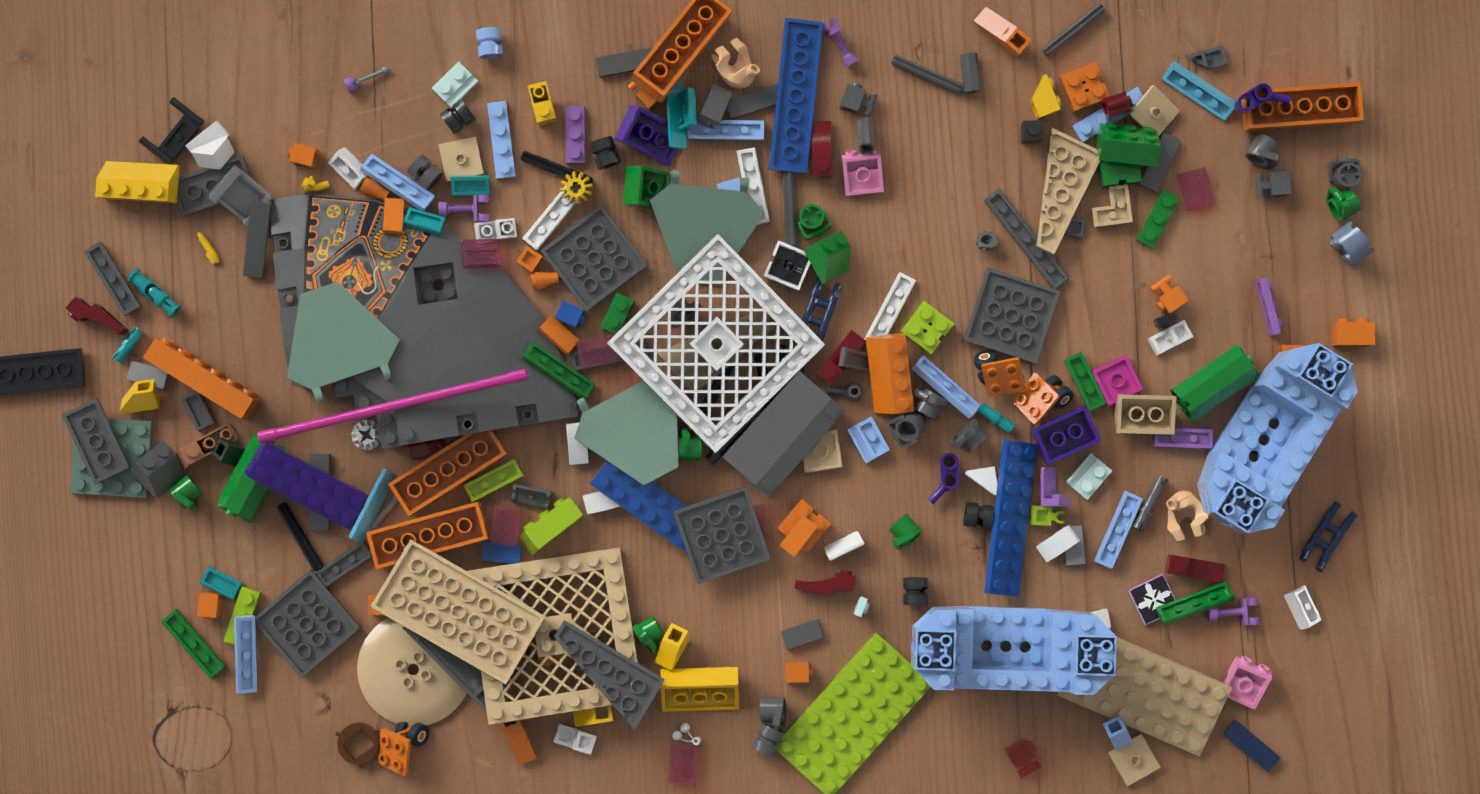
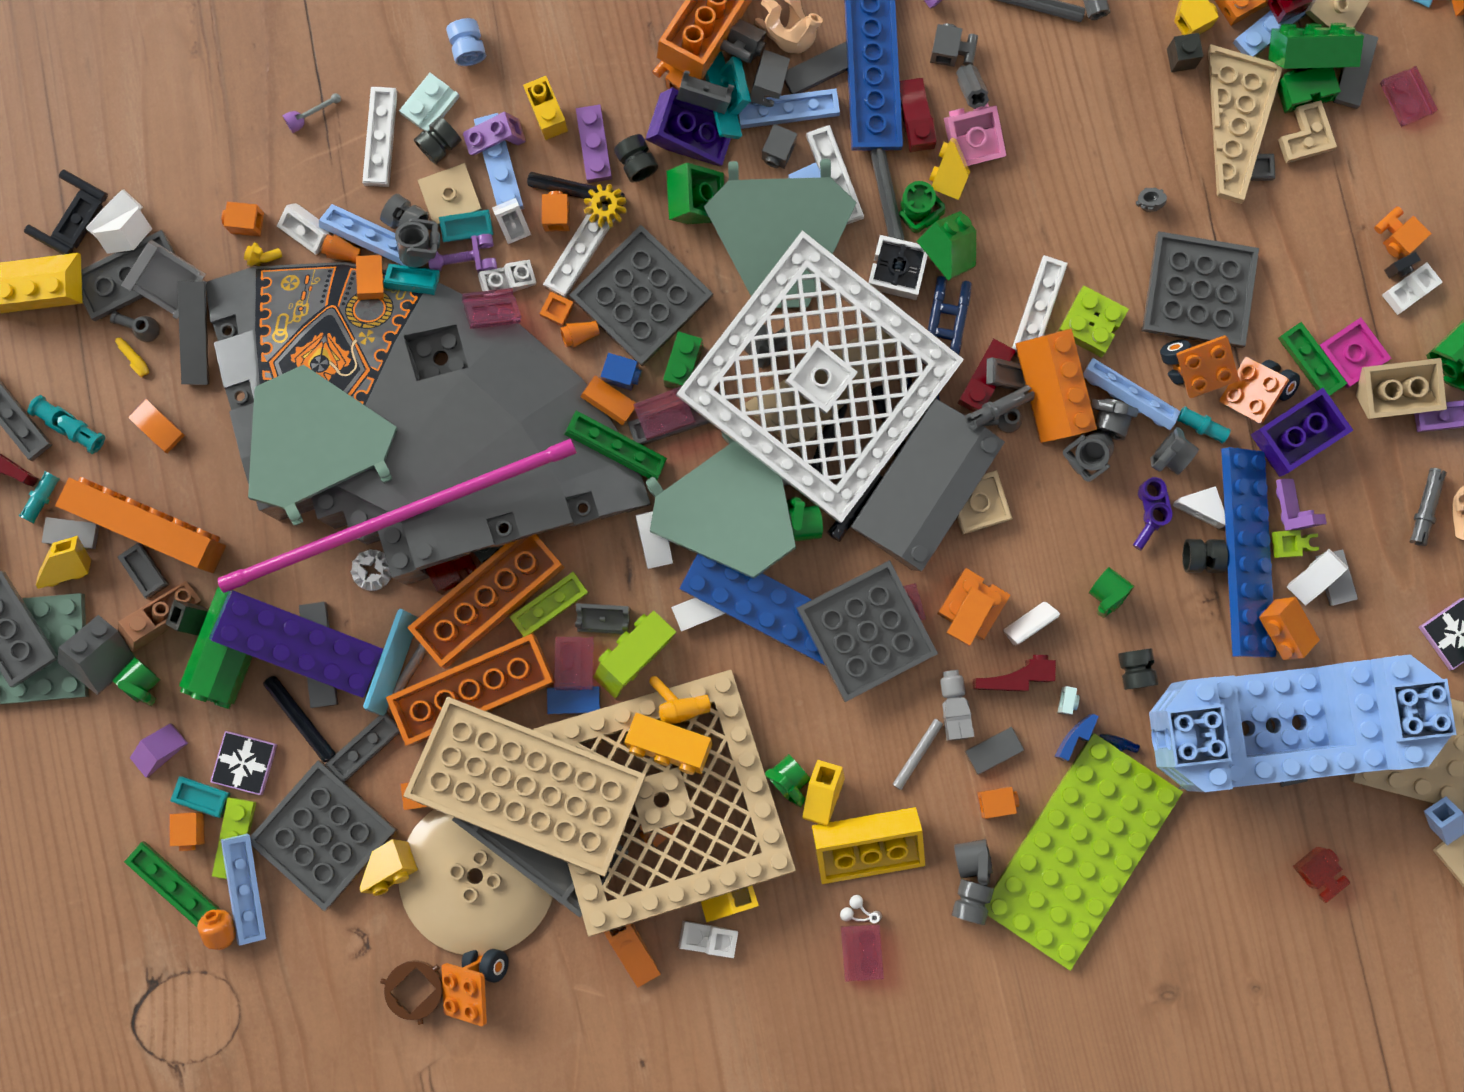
camera: 10 degrees left, 5 degrees down
(194, 544) = (157, 749): none -> medium lavender slope
(220, 304) = (156, 426): none -> orange slope
(223, 680) = (217, 930): none -> orange head
(226, 227) = (148, 334): none -> dark grey bar
(255, 563) = (243, 763): none -> black tile
(351, 653) = (388, 866): none -> yellow slope
(414, 105) = (380, 136): none -> white tile
(430, 197) = (414, 242): none -> dark grey piece
(500, 117) = (493, 132): none -> medium lavender bracket
(504, 186) = (511, 221): none -> white slope
(539, 184) = (555, 211): none -> orange brick
(564, 596) = (668, 744): none -> light orange brick
(577, 572) = (678, 710): none -> light orange piece
(619, 678) = (759, 845): dark grey wing -> none
(621, 62) = (636, 46): dark grey tile -> none
(662, 114) = (704, 93): none -> dark grey hinge
(699, 75) = (745, 41): none -> dark grey brick
(713, 159) = (779, 147): none -> dark grey brick
(746, 628) = (917, 754): none -> light grey bar
(778, 599) = (955, 709): none -> light grey piece
(838, 387) = (991, 411): none -> dark grey pin
(840, 200) = (952, 172): none -> yellow slope
(867, 629) = (1081, 731): none -> blue slope
(868, 439) = (1040, 478): light blue plate -> none
(895, 643) = (1120, 743): none -> clear blue helmet
(1026, 239) = (1200, 190): dark grey tile -> none
(1029, 578) = (1289, 628): none -> orange brick
(1088, 476) = (1339, 484): light aqua plate -> none
(1118, 529) = (1392, 548): light blue plate -> none
(1157, 219) = (1366, 140): green plate -> none

